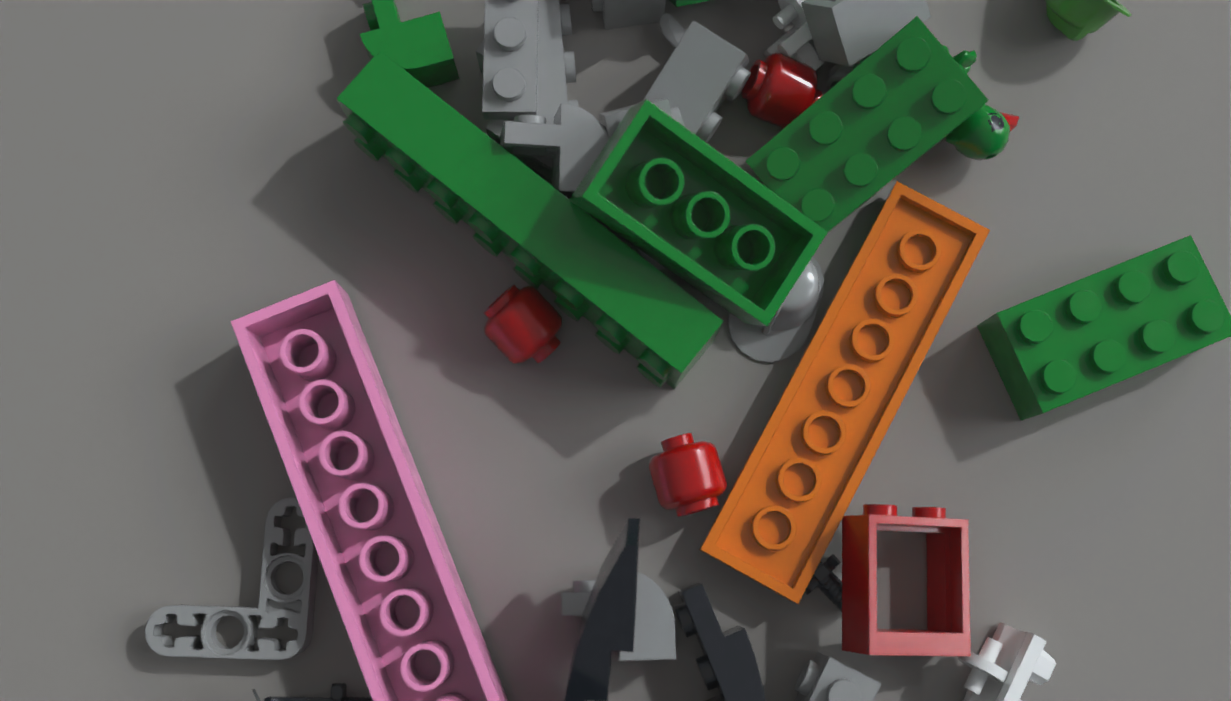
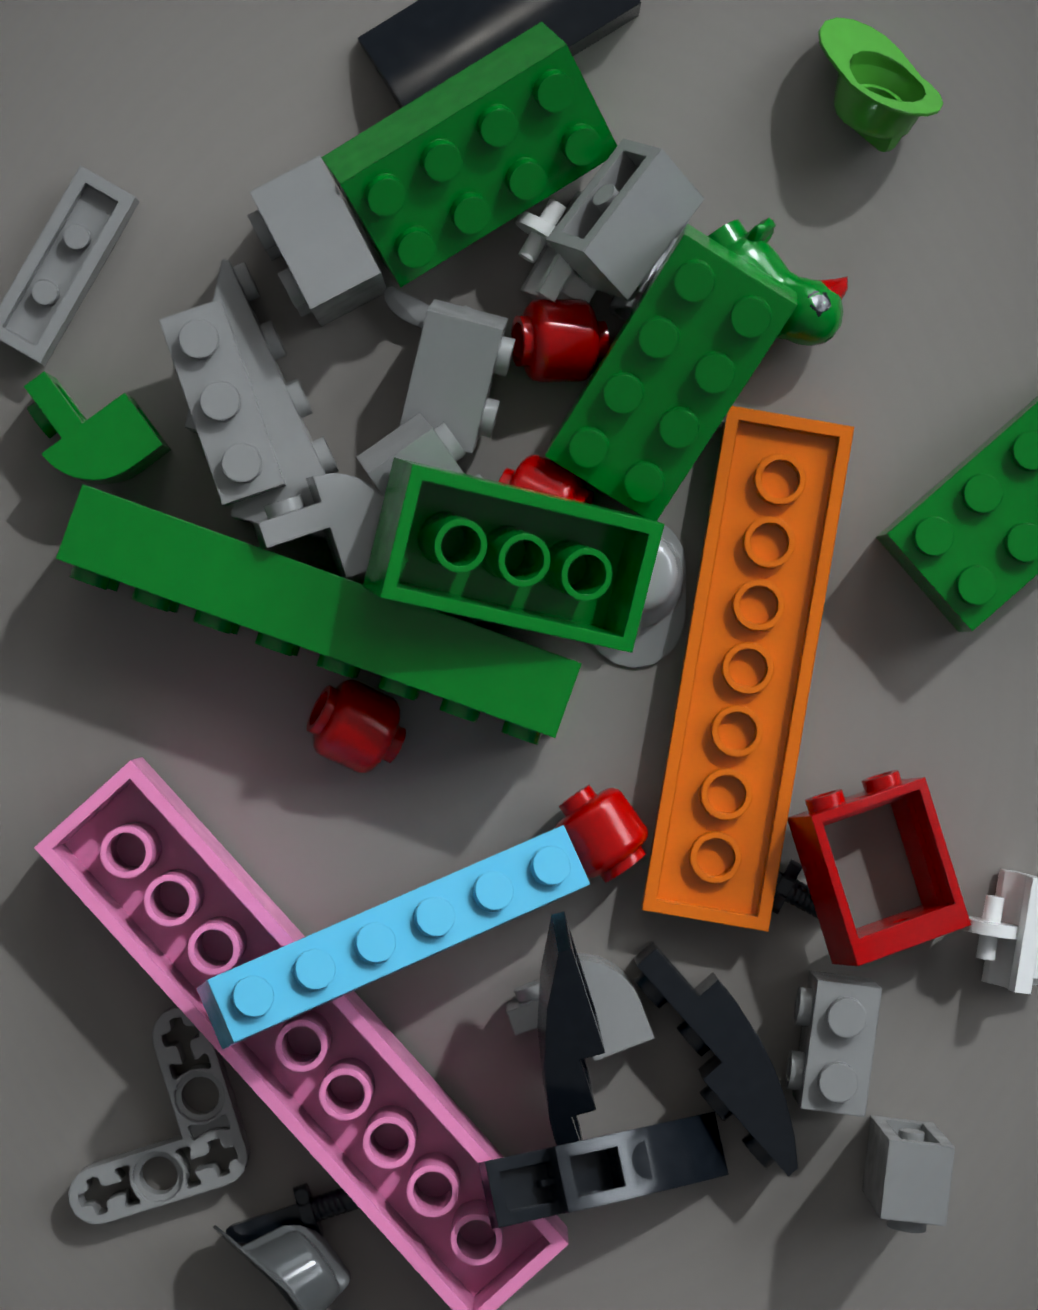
camera: 10 degrees left, 10 degrees up
(485, 492) = (391, 936): none -> medium azure brick

